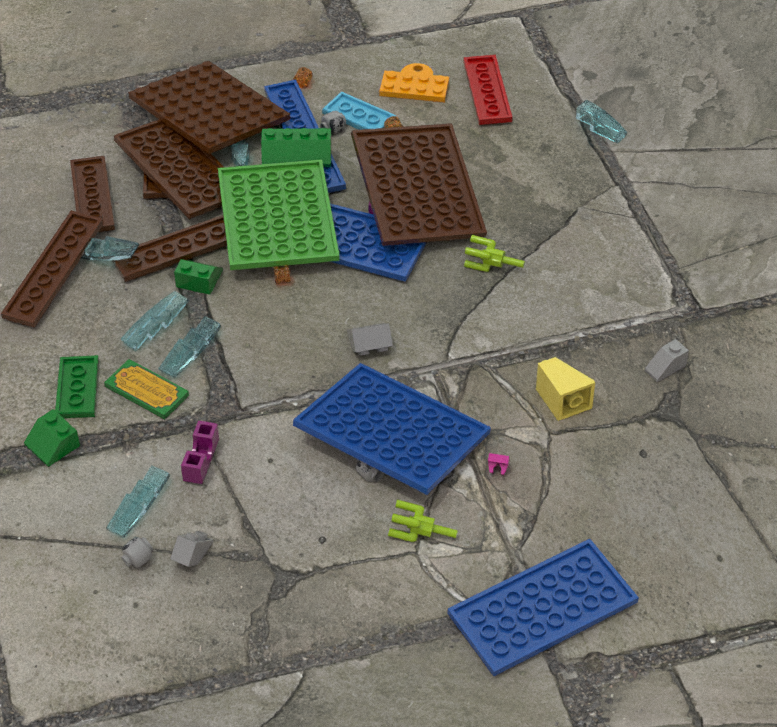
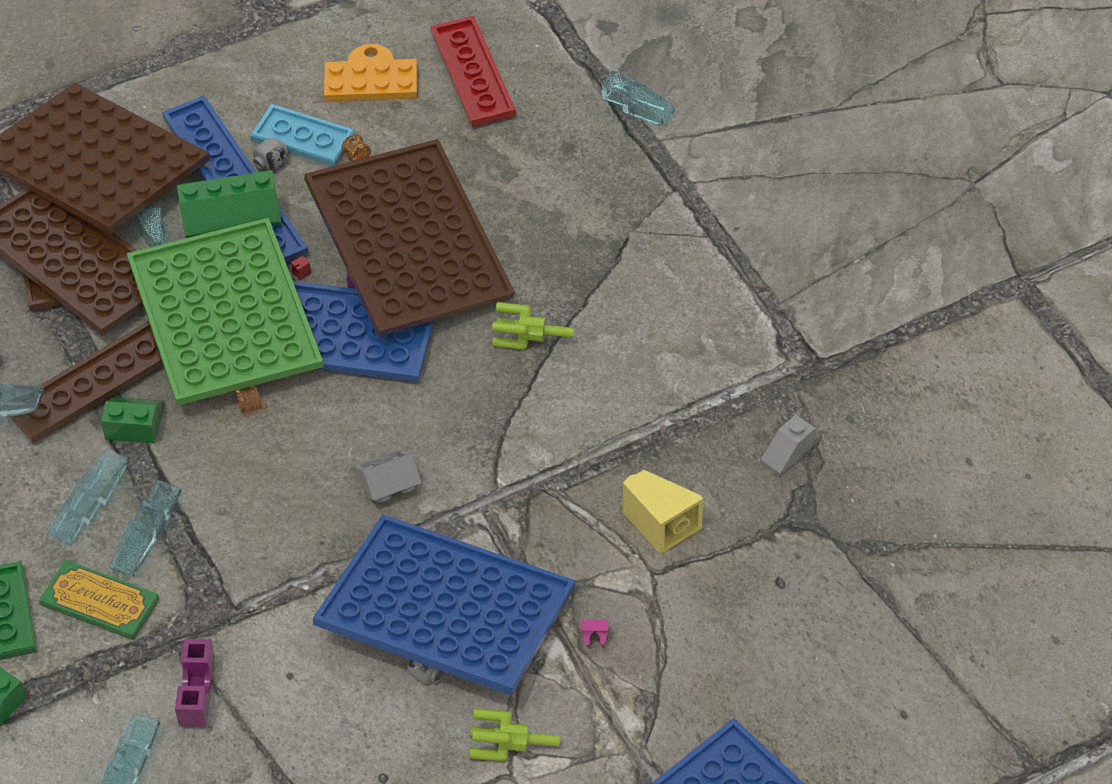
camera: 10 degrees left, 5 degrees up
(303, 77) = (214, 89): clear orange wheel -> none
(338, 196) = (300, 268): none -> red piece

